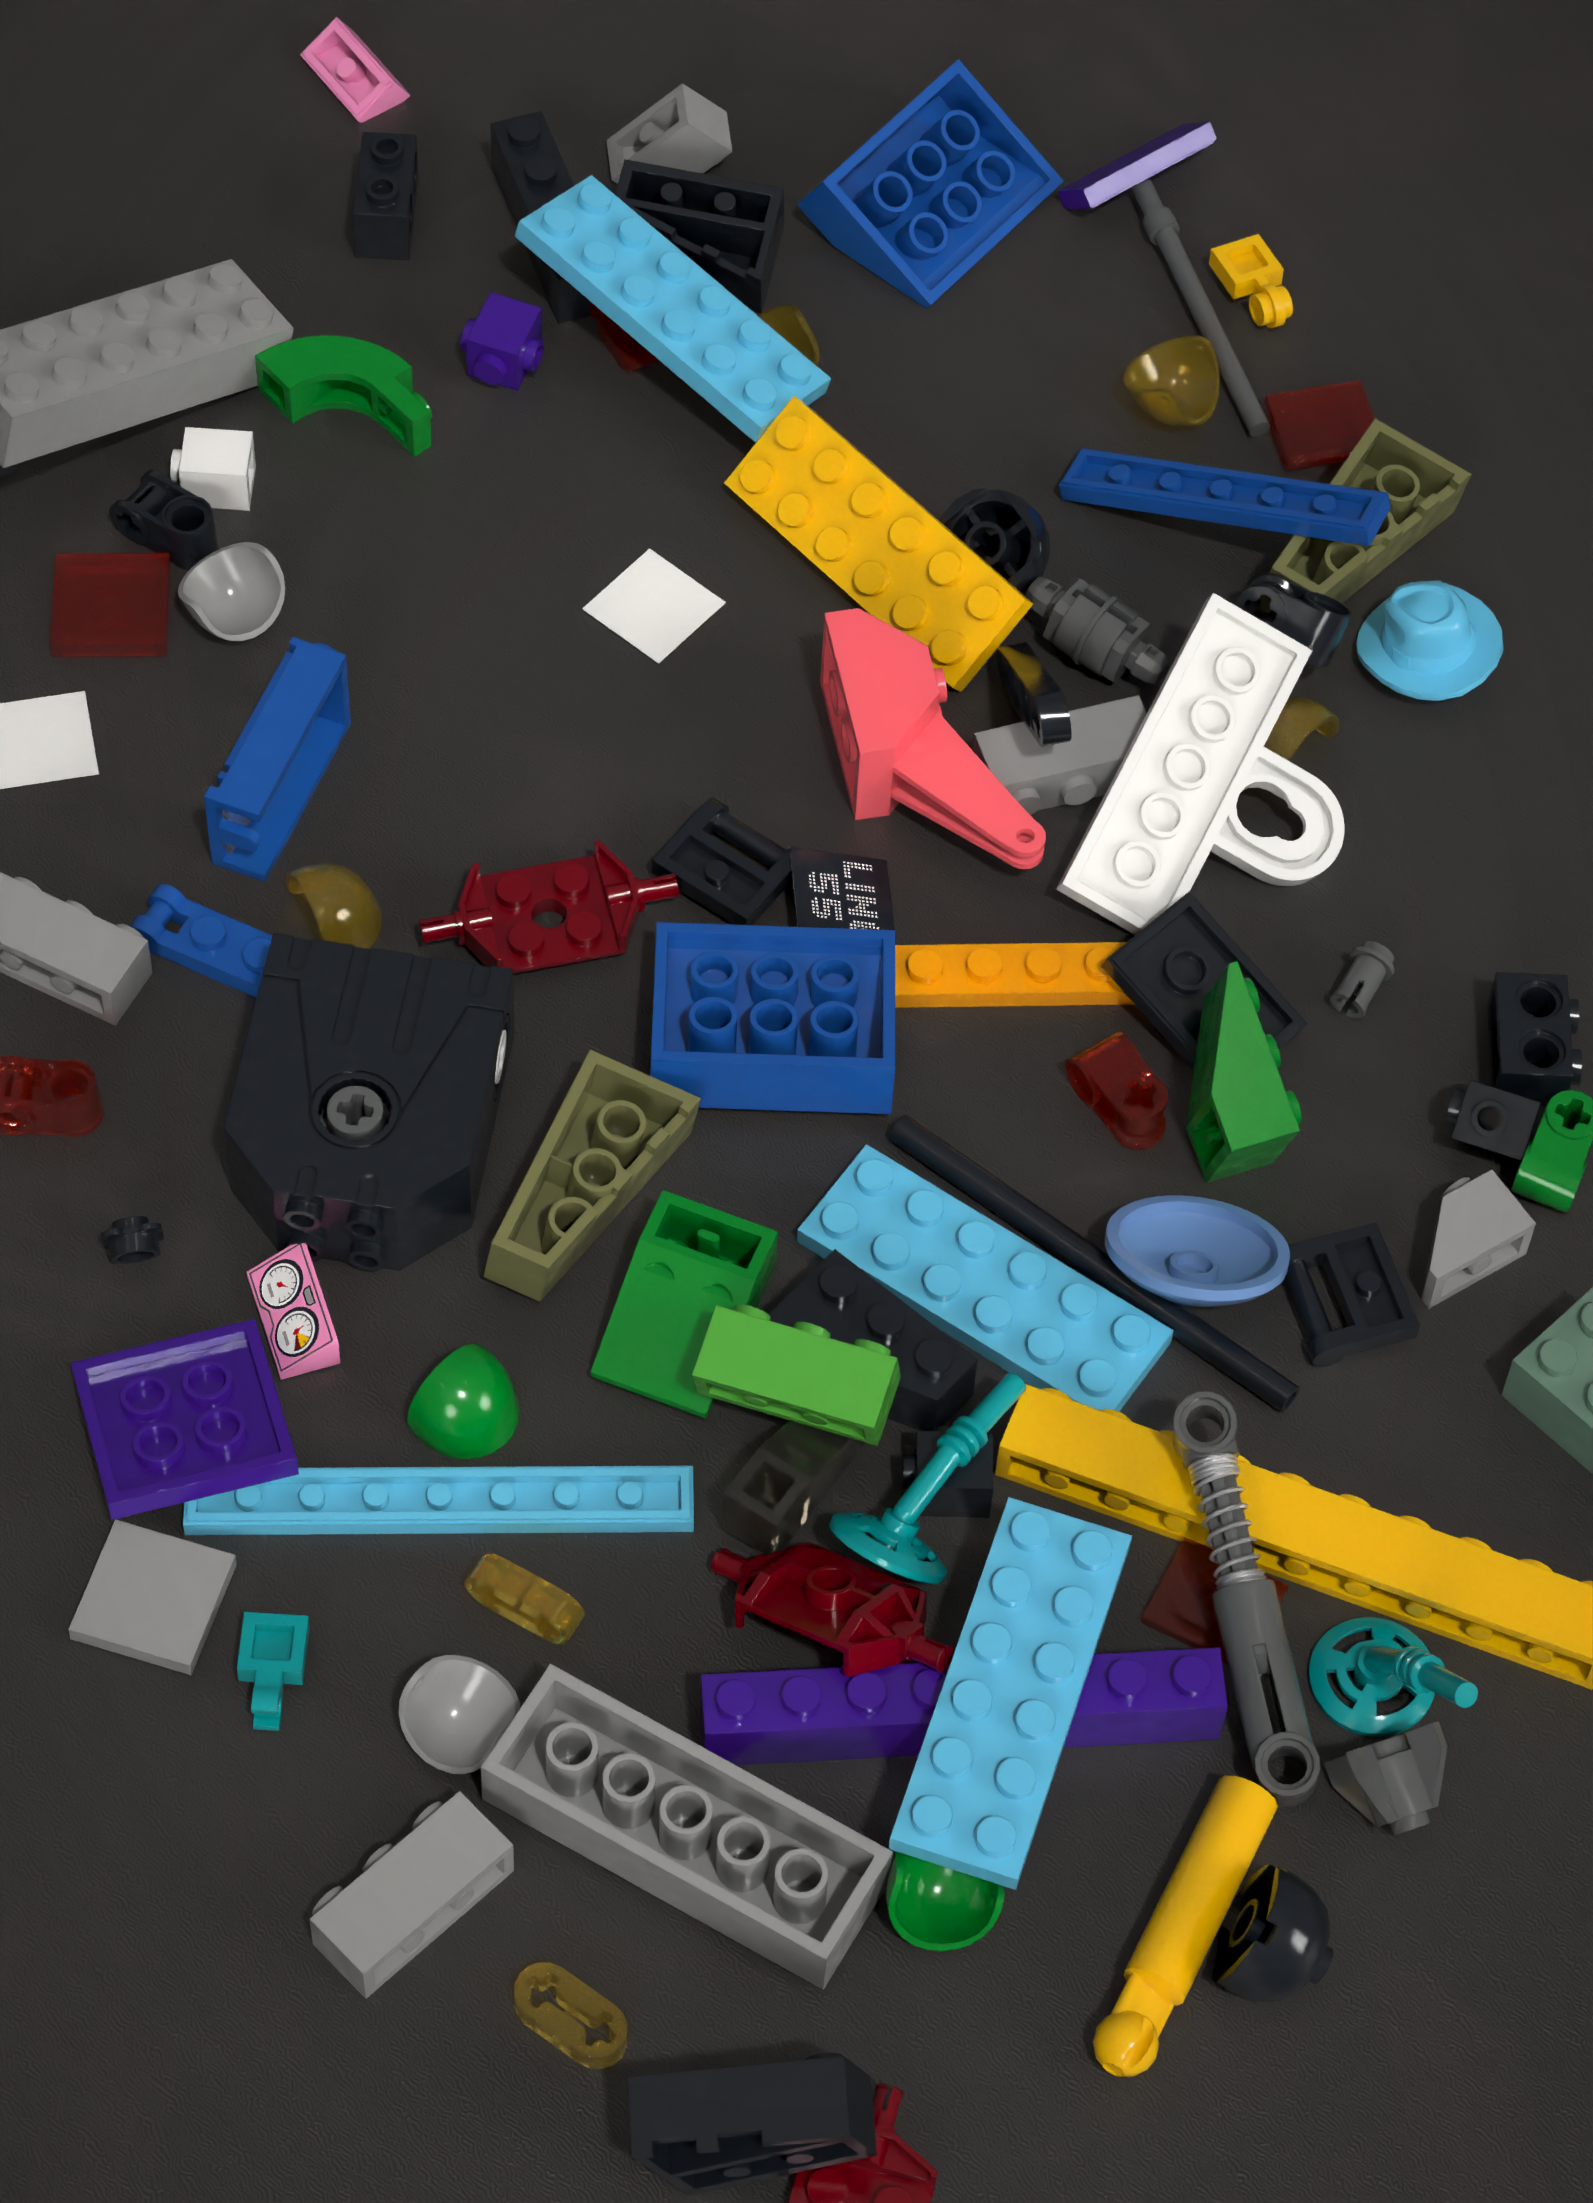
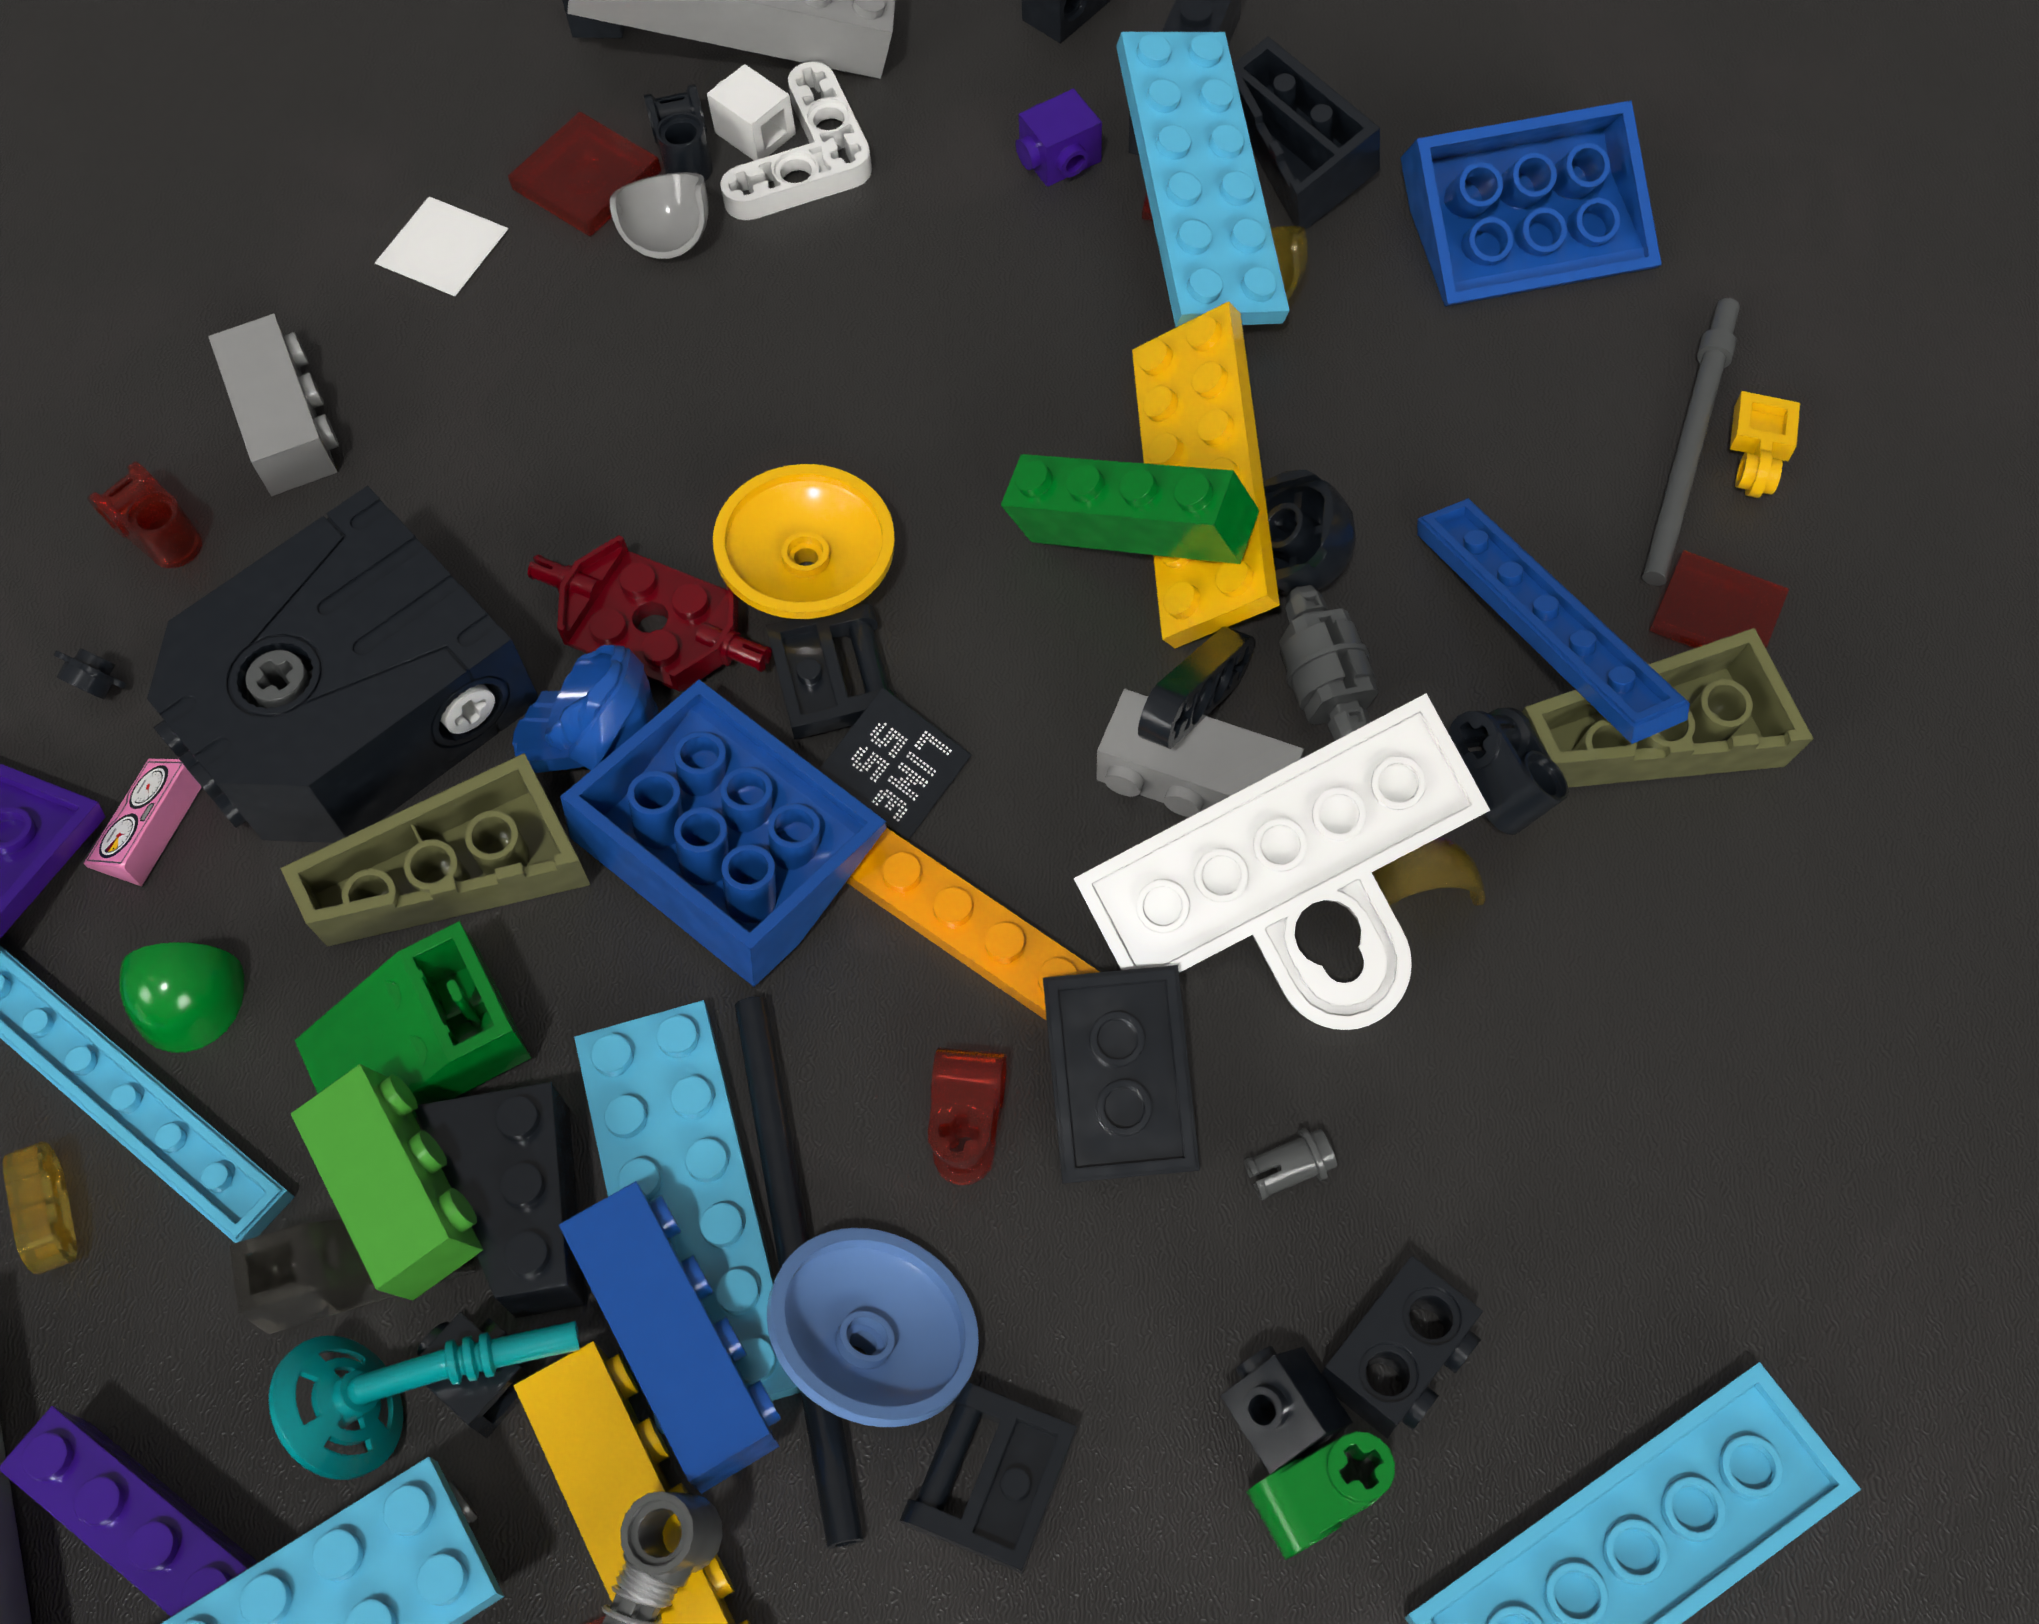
camera: 45 degrees right, 5 degrees up
(206, 941) = (394, 472): blue plate -> none
(279, 759) = (556, 356): blue door -> none
(302, 464) = (818, 158): none -> white beam
(340, 902) = (497, 507): clear yellow helmet -> none
(349, 375) = (908, 91): green arch -> none
(586, 1003) = (591, 715): none -> blue hair
(630, 756) = (798, 518): none -> yellow dish
(654, 605) = (988, 418): white sticker -> none
(674, 133) = (1350, 51): light grey slope -> none
(837, 1604) = (213, 1475): dark red plate -> none
(889, 582) = (1132, 507): none -> green brick
(902, 749) = (1049, 654): coral slope -> none
(1074, 1340) = (669, 1336): none -> blue brick
(1137, 166) = (1738, 285): tile -> none
(1176, 381) = (1604, 489): clear yellow helmet -> none
(1237, 1098) = (1031, 1200): green slope -> none
(1430, 641) = (1646, 876): medium azure hat -> none
(1474, 1235) = (1159, 1511): light grey slope -> none

